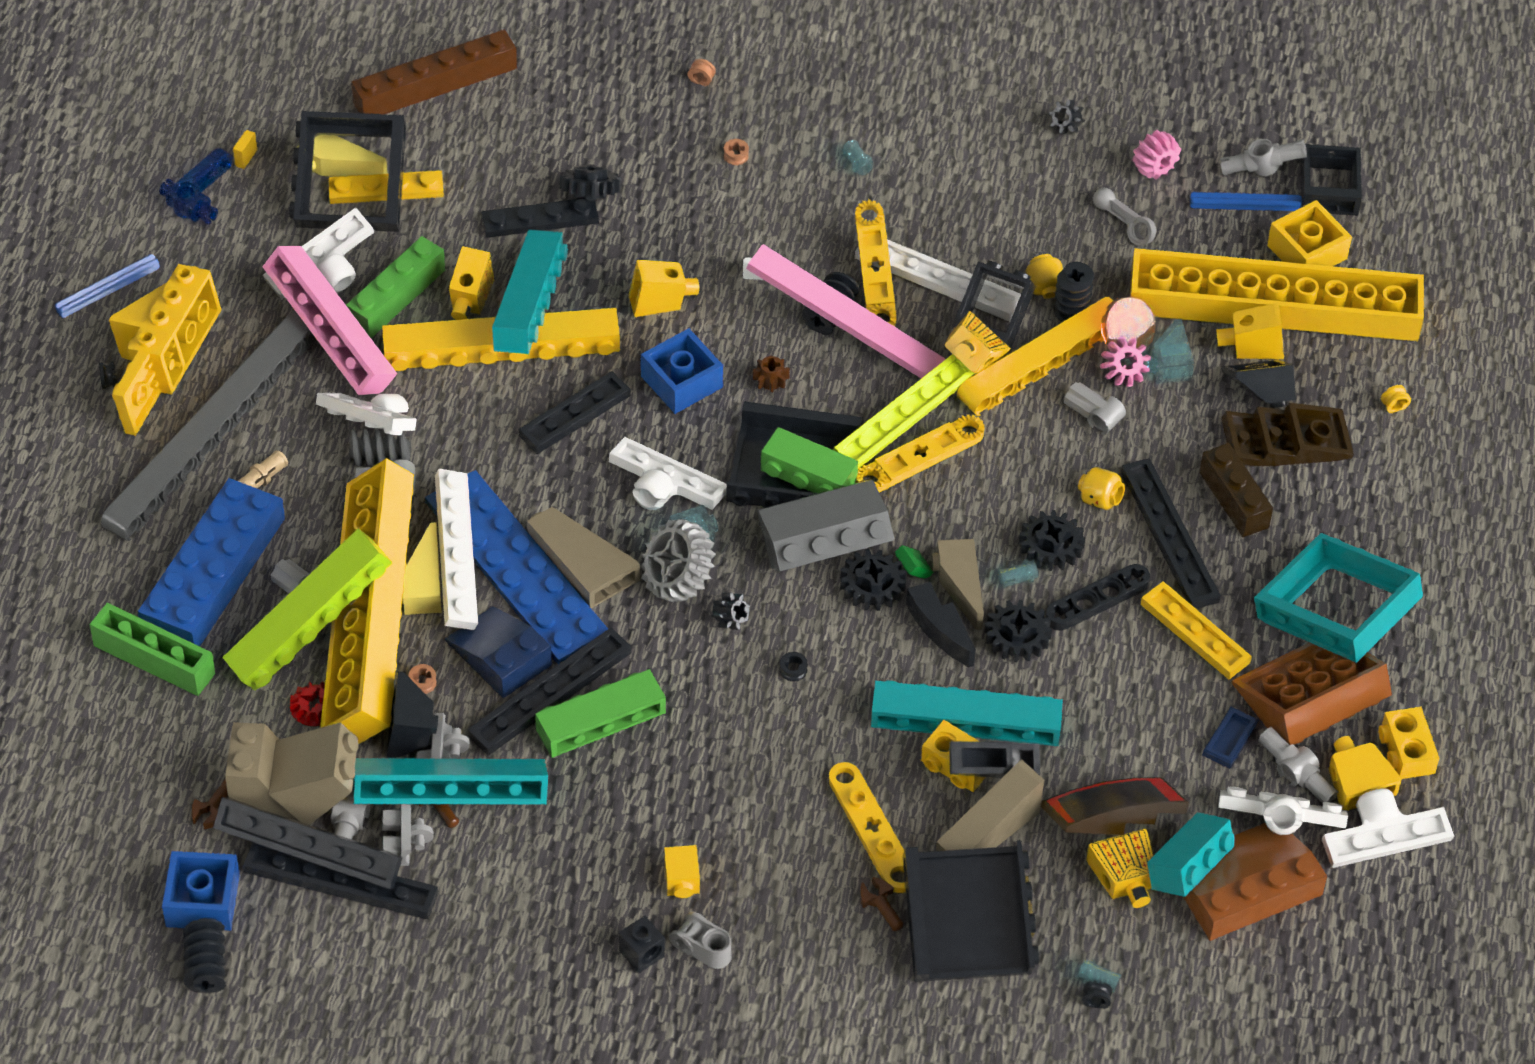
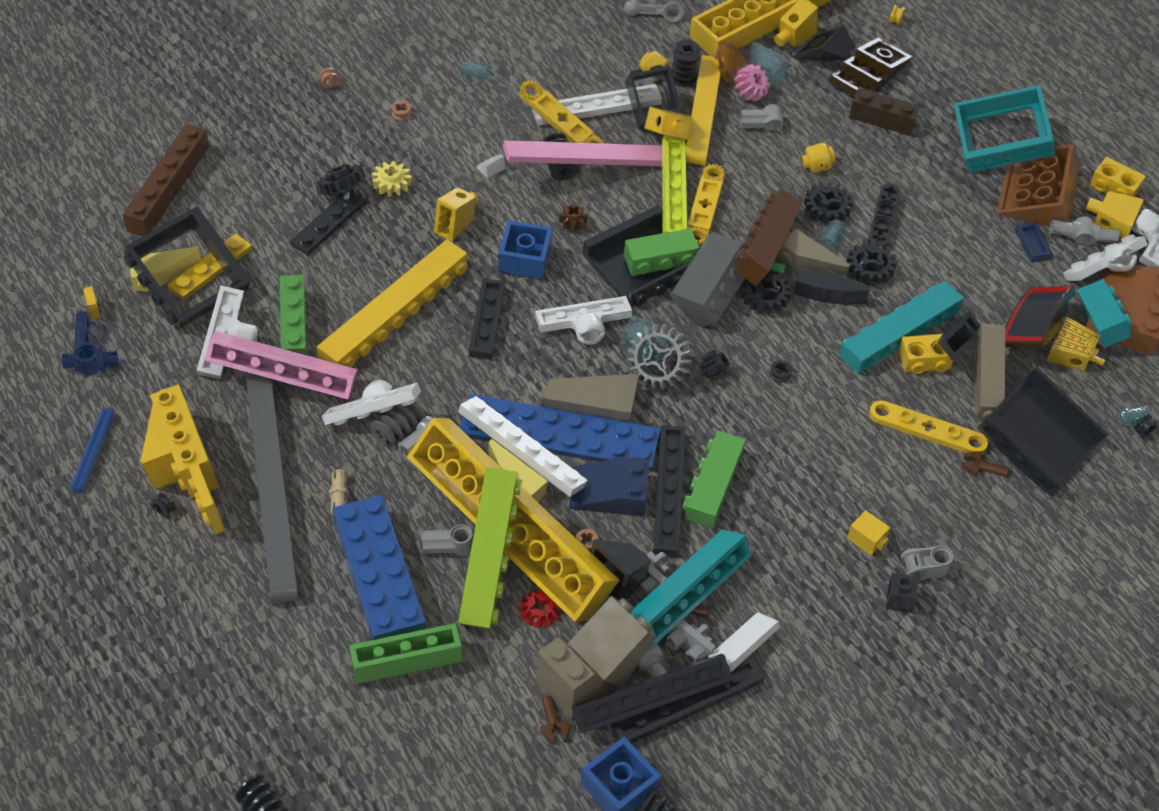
camera: 45 degrees left, 0 degrees up
(448, 870) = (746, 639): none -> white tile
(470, 282) = (340, 284): yellow torso -> none
(529, 292) = (388, 264): teal brick -> none
(642, 214) = (391, 178): none -> light yellow gear
(925, 522) = (767, 236): none -> reddish brown brick
(1170, 533) = (880, 158): black plate -> none
(1196, 630) = (952, 198): yellow plate -> none

